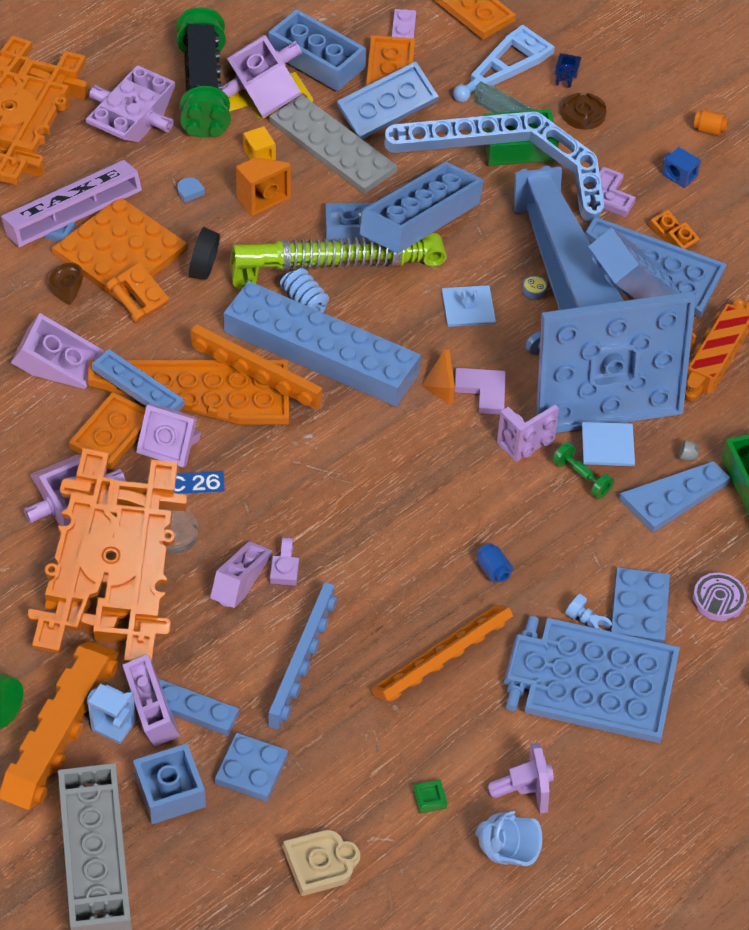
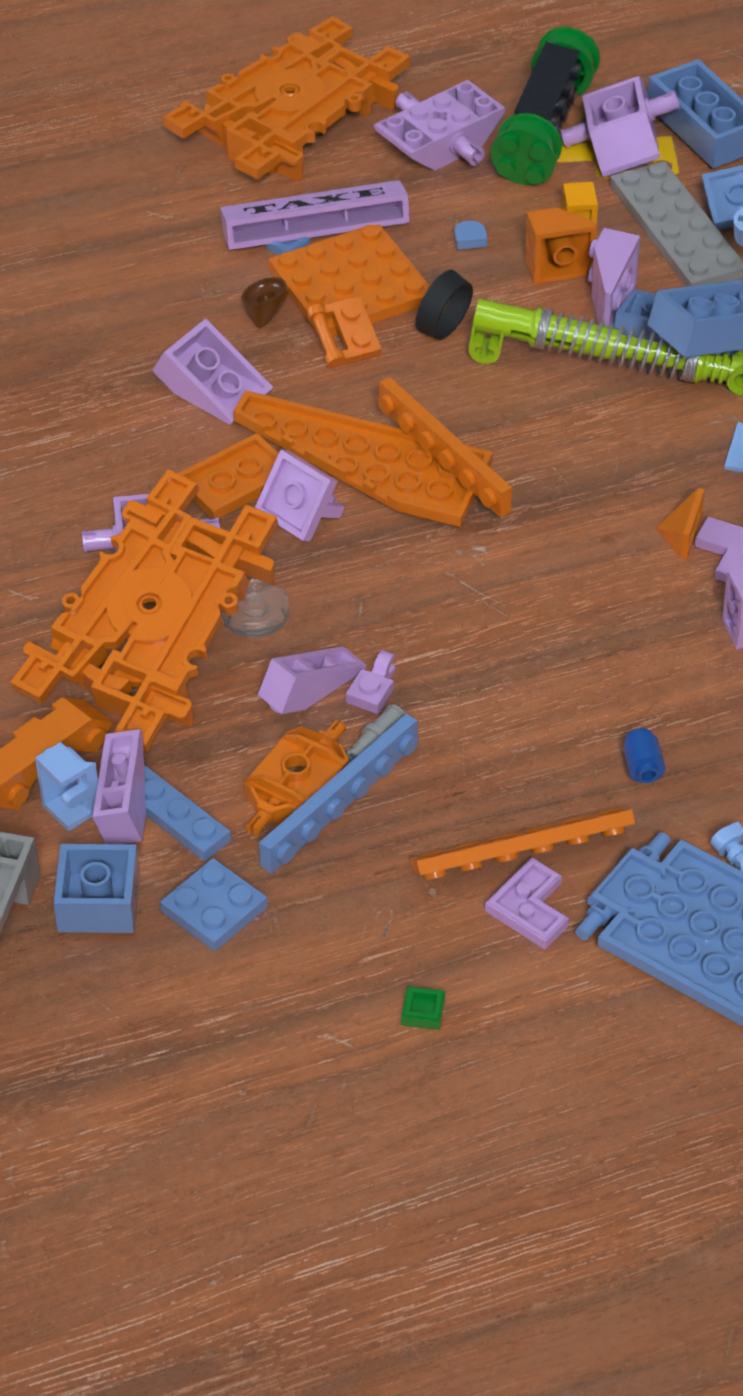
camera: 25 degrees right, 5 degrees down
(135, 381) = (286, 425): medium blue plate -> none
(199, 482) = (310, 563): blue sticker -> none
(259, 668) = (279, 792): none -> orange plate
(304, 289) = (553, 382): light blue piece -> none
(305, 603) = (374, 730): none -> light grey pin
(310, 198) = (612, 271): none -> lavender slope
(321, 861) = (244, 1039): tan plate -> none
(322, 343) = (548, 445): medium blue brick -> none
(460, 699) = (522, 904): none -> lavender tile
(510, 839) = (496, 1085): light blue helmet -> none
(527, 779) = (556, 1021): lavender piece -> none

